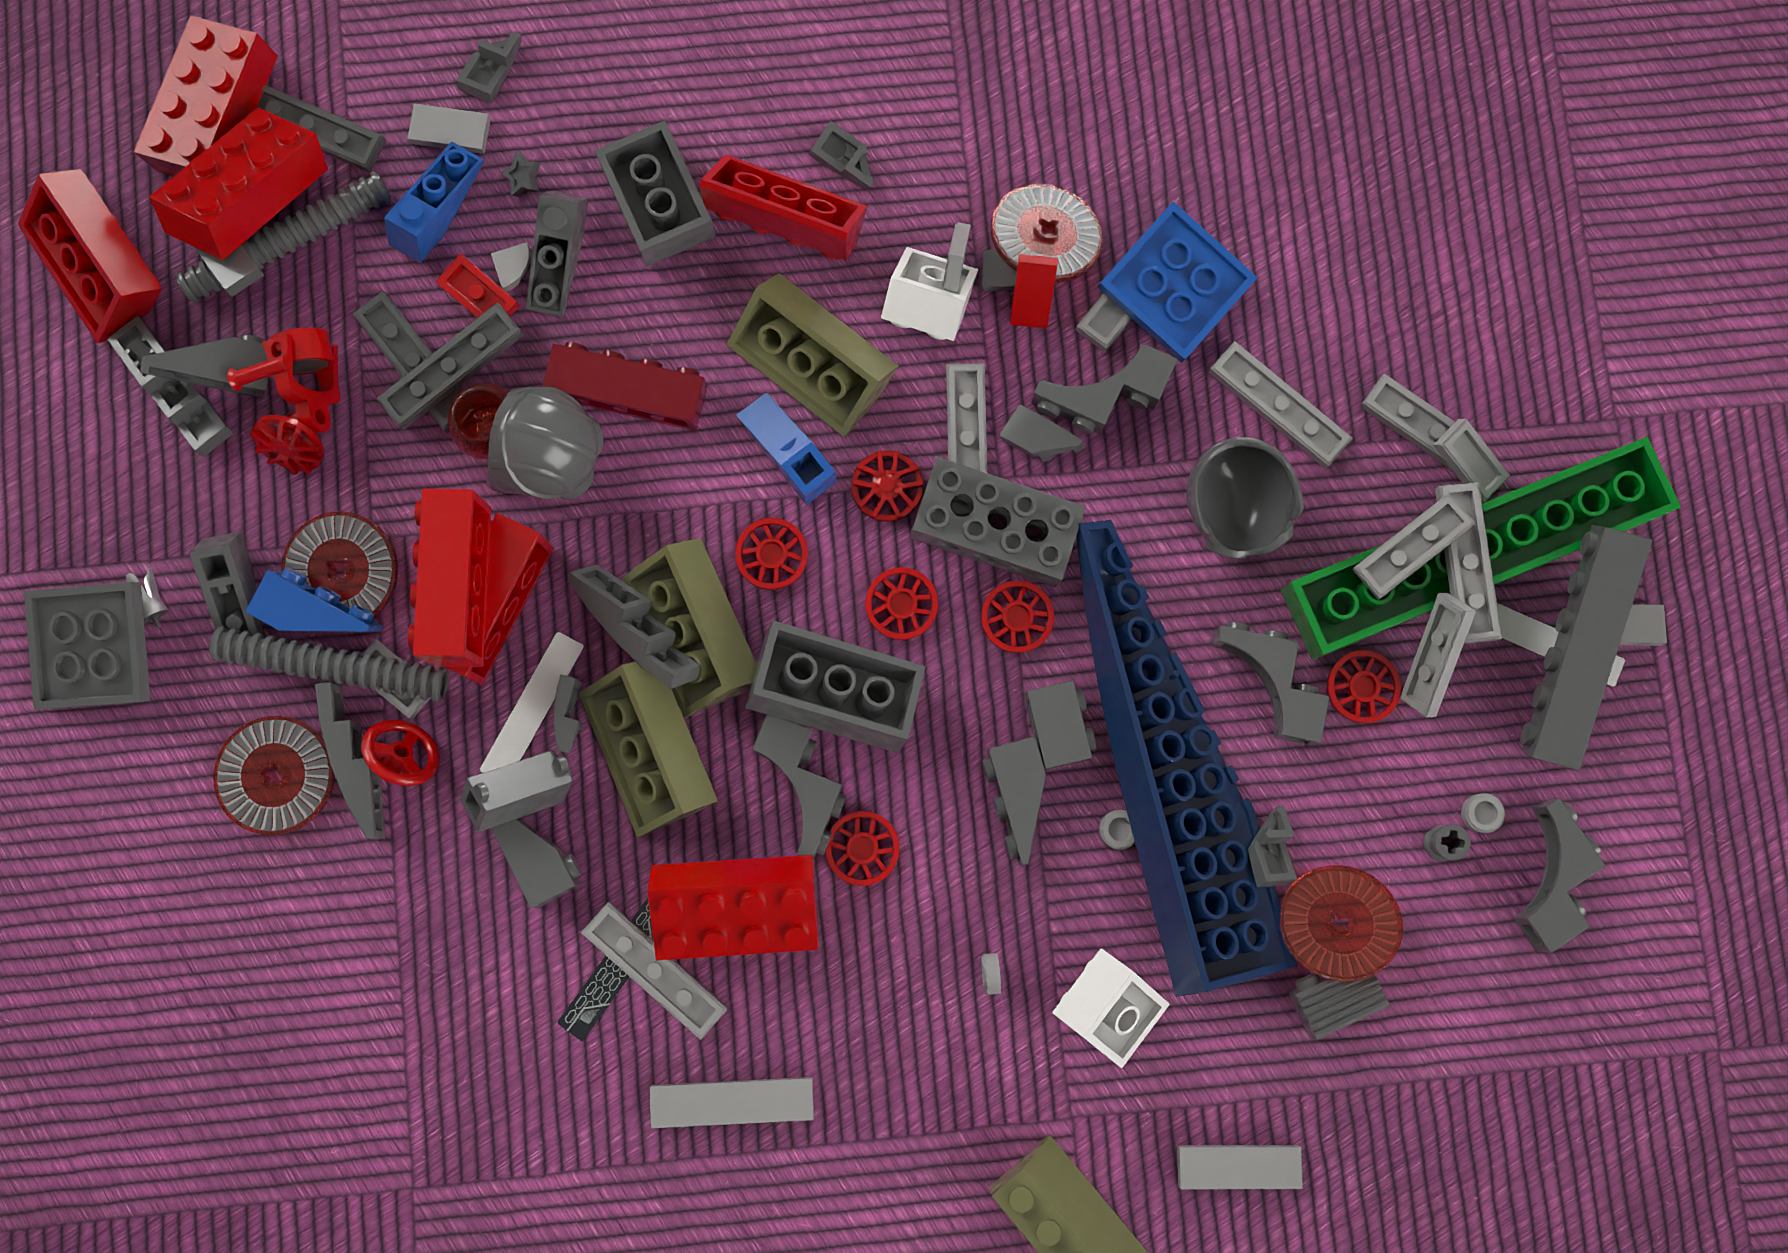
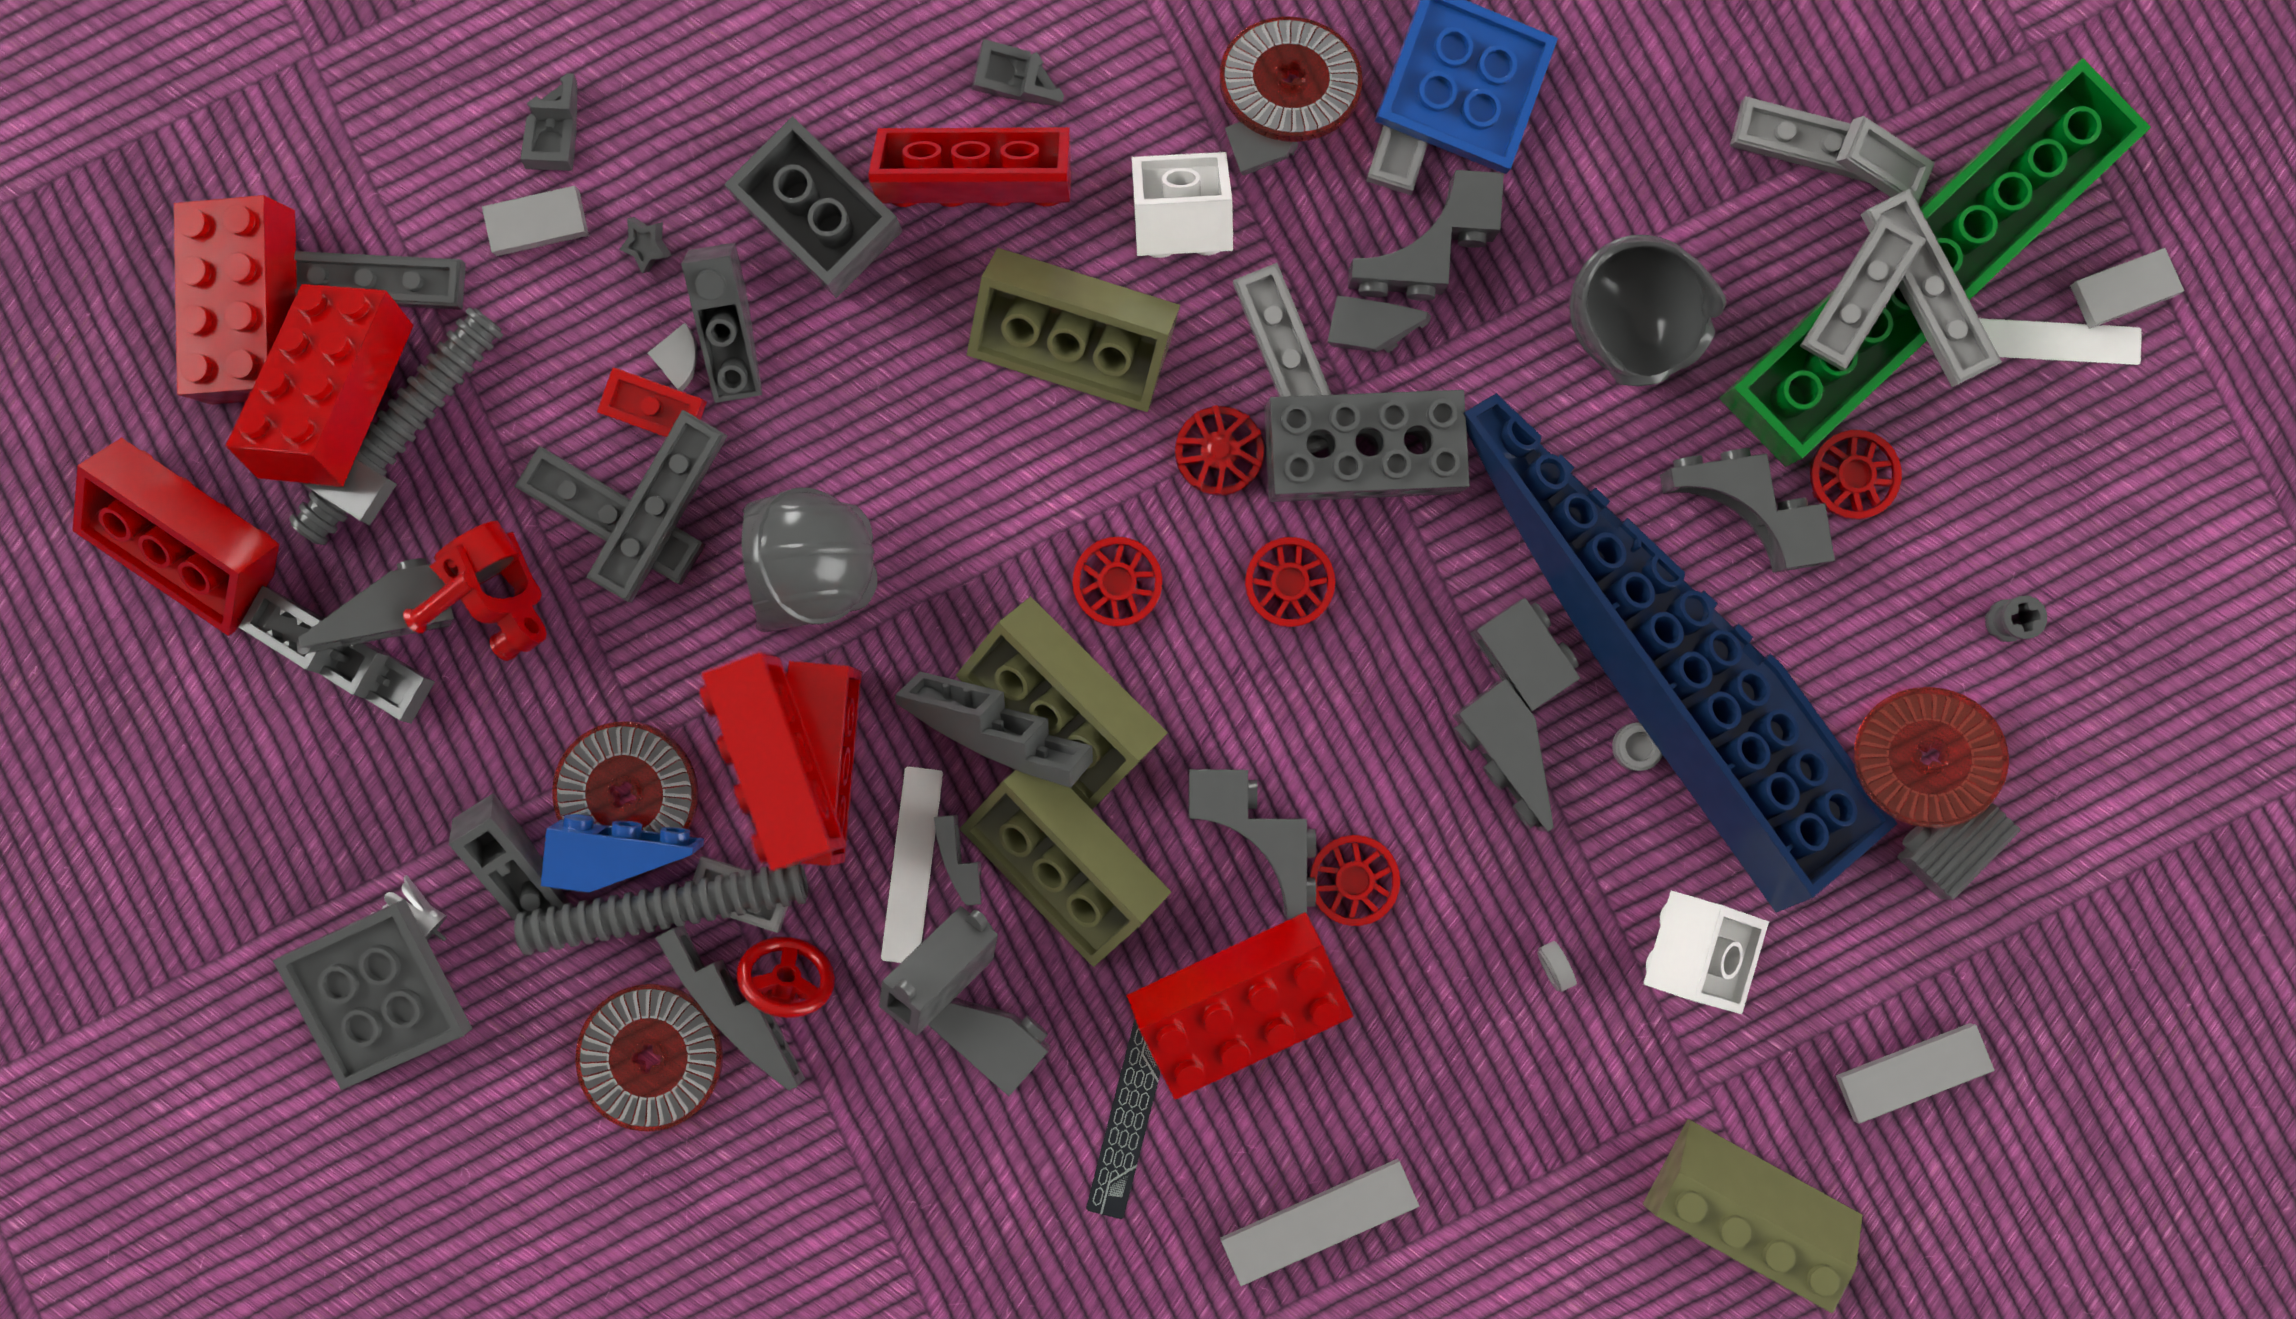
camera: 15 degrees left, 5 degrees up
(289, 447) = (505, 674): red wheel -> none
(432, 202) = (554, 318): blue slope -> none
(472, 417) = (708, 556): clear red helmet -> none
(627, 386) = (870, 450): dark red brick -> none
(662, 979) = (1192, 1118): light grey tile -> none
(788, 448) = (1088, 451): slope -> none
(835, 687) = (1257, 710): dark grey brick -> none
(956, 257) = (1199, 149): light grey tile -> none
(1017, 616) = (1429, 545): red wheel -> none
(1033, 291) = (1304, 155): red tile -> none
(1269, 852) = (1818, 706): dark grey slope -> none
(1280, 405) = (1638, 180): light grey tile -> none
(1437, 654) = (1932, 407): light grey tile -> none
(1482, 813) = (2043, 568): light grey tile -> none
(1571, 858) = (2163, 584): dark grey arch -> none
(1585, 646) = (2097, 332): dark grey brick -> none

